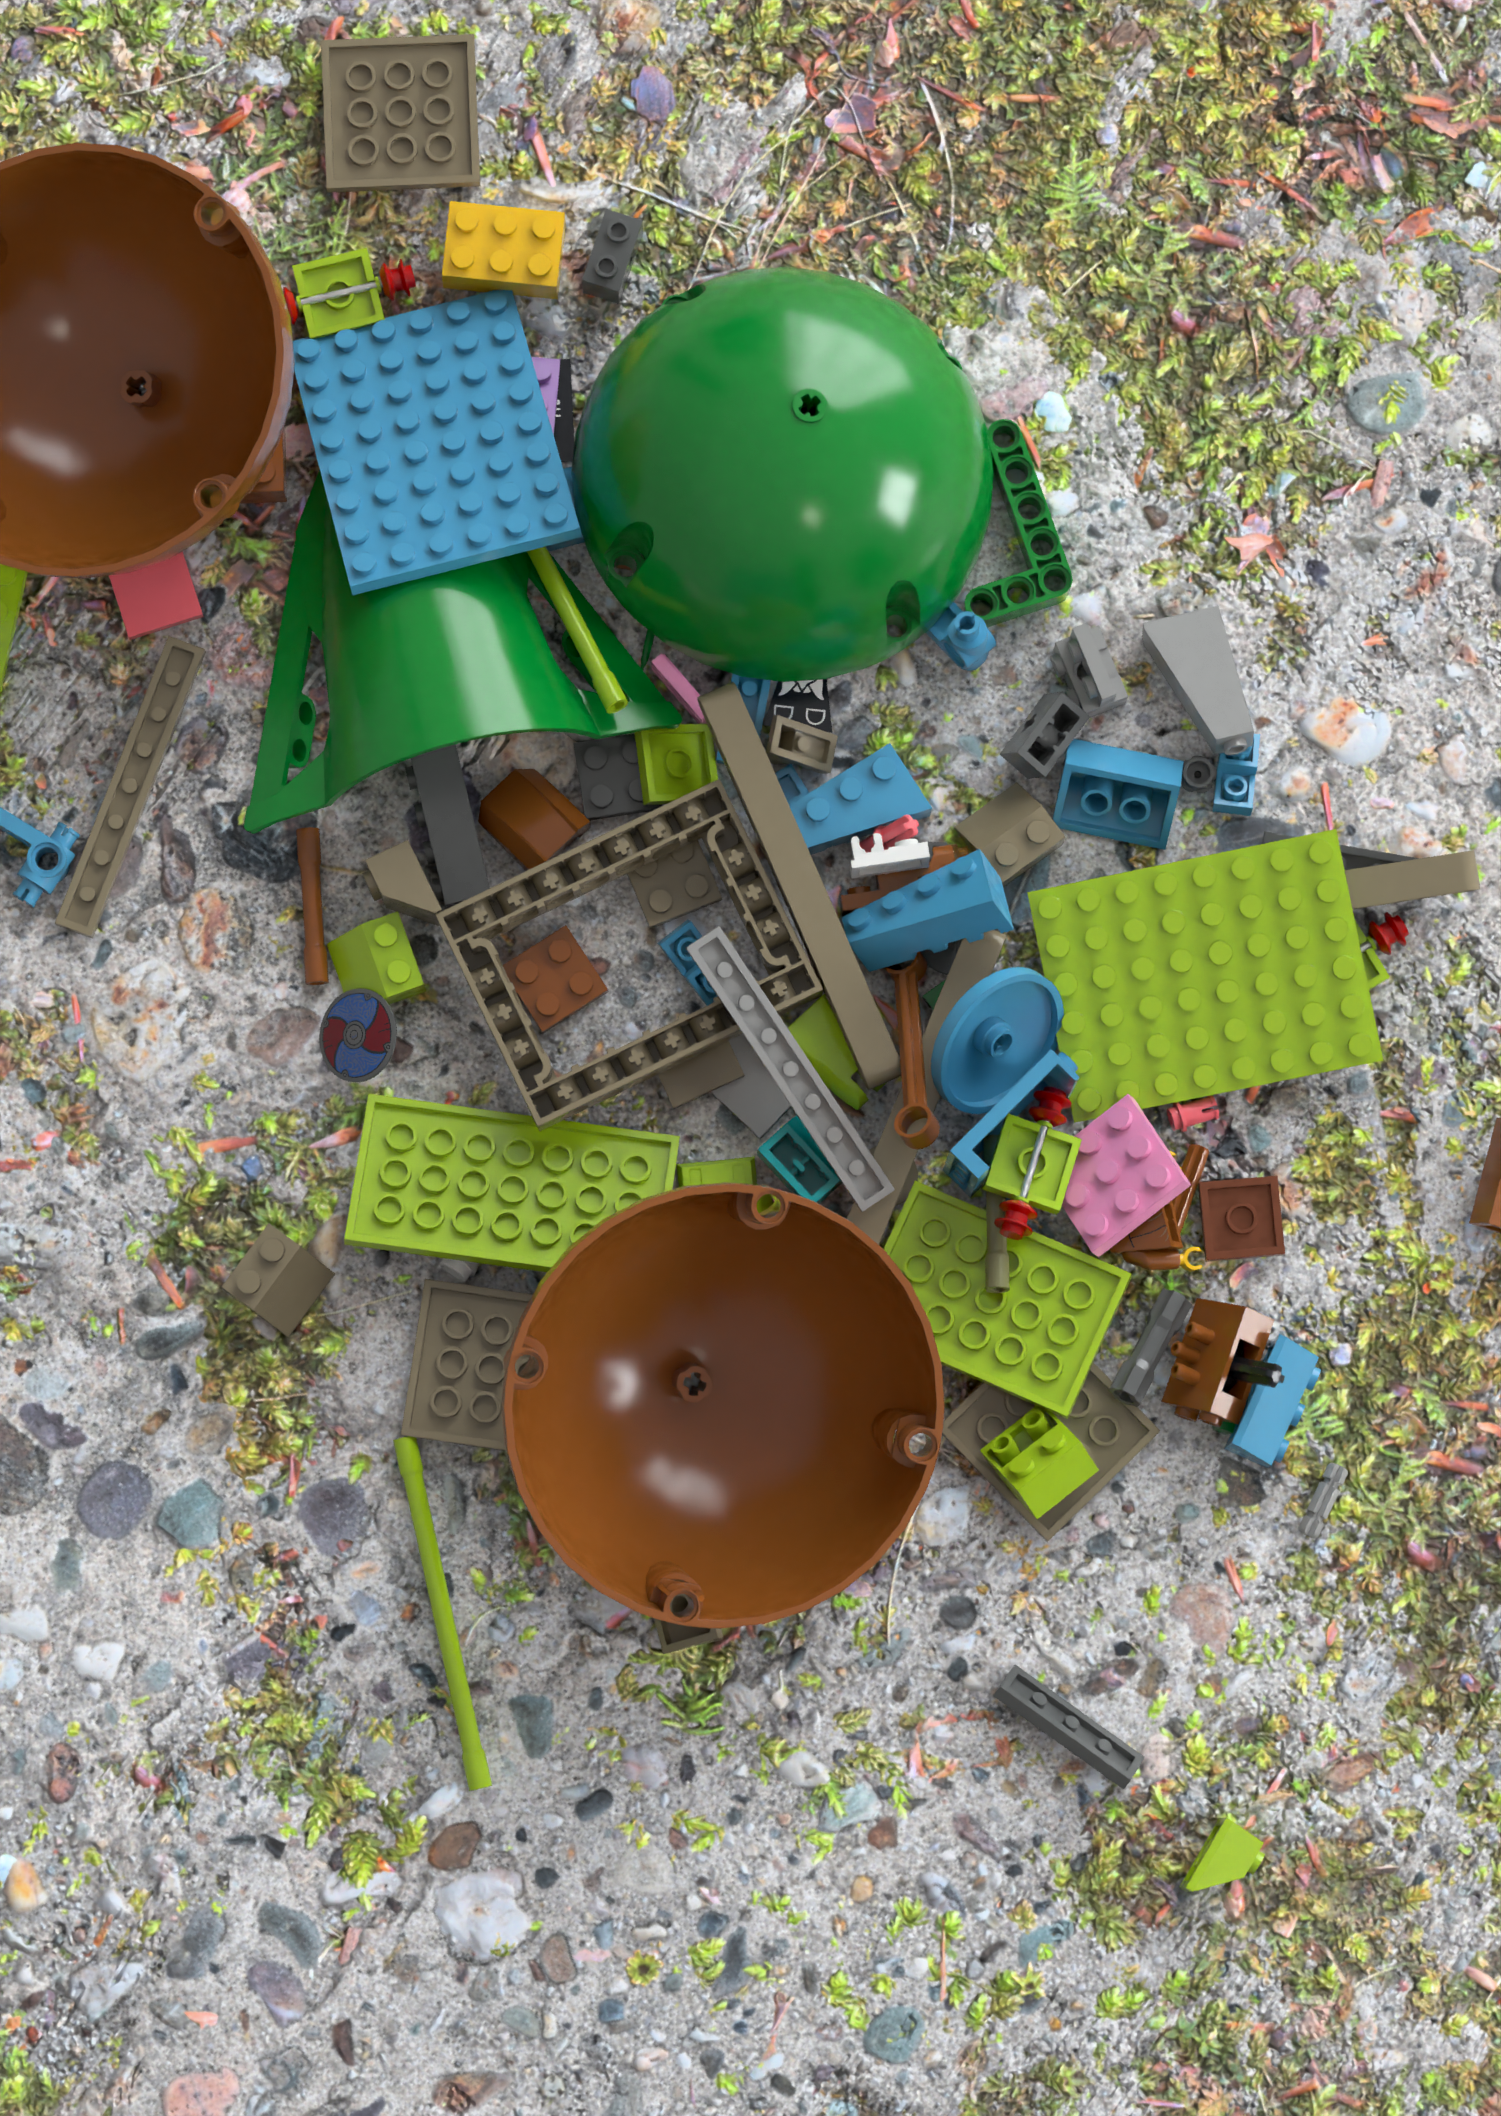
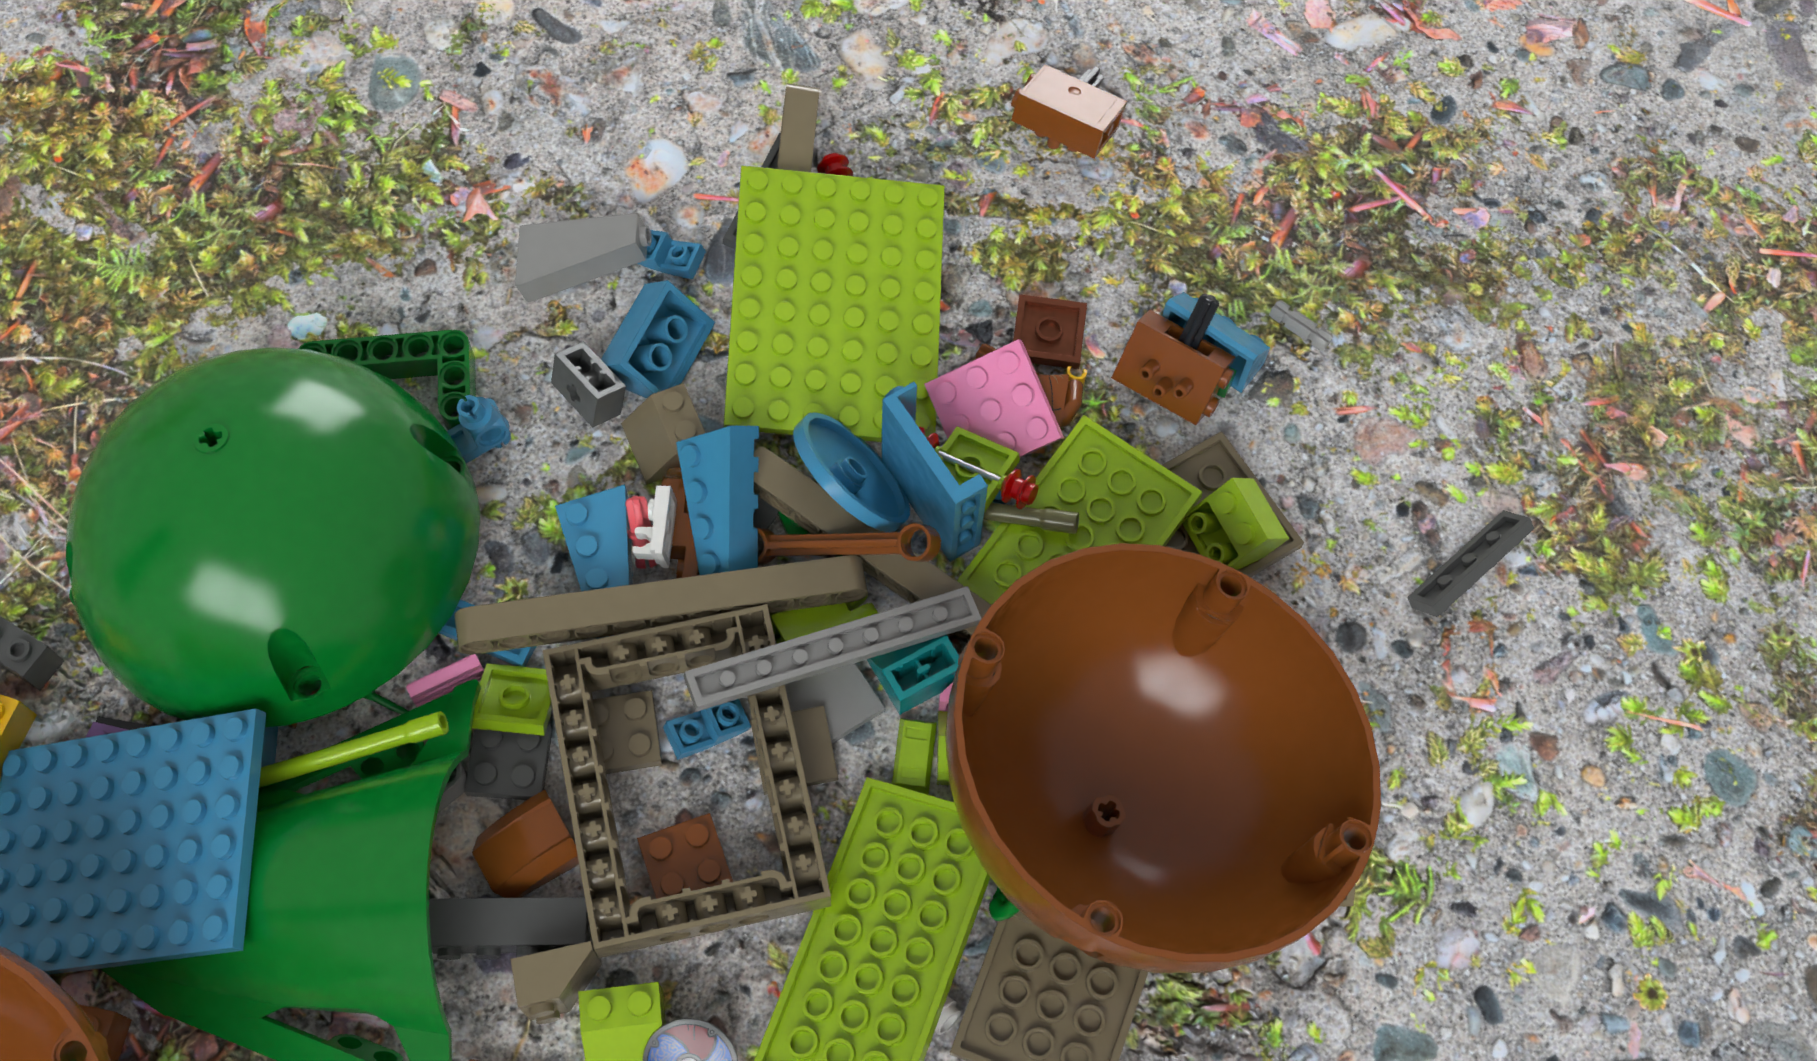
camera: 75 degrees left, 15 degrees down
(800, 745) = (532, 581): dark tan slope -> none
(802, 702) = (493, 582): black sticker -> none
(1102, 686) = (530, 328): light grey brick -> none
(1138, 1370) = (1168, 433): dark grey axle -> none
(1191, 1113) = (949, 350): coral pin -> none
(1207, 771) = (658, 273): dark grey plate -> none
(1224, 1857) = (1604, 467): lime slope -> none

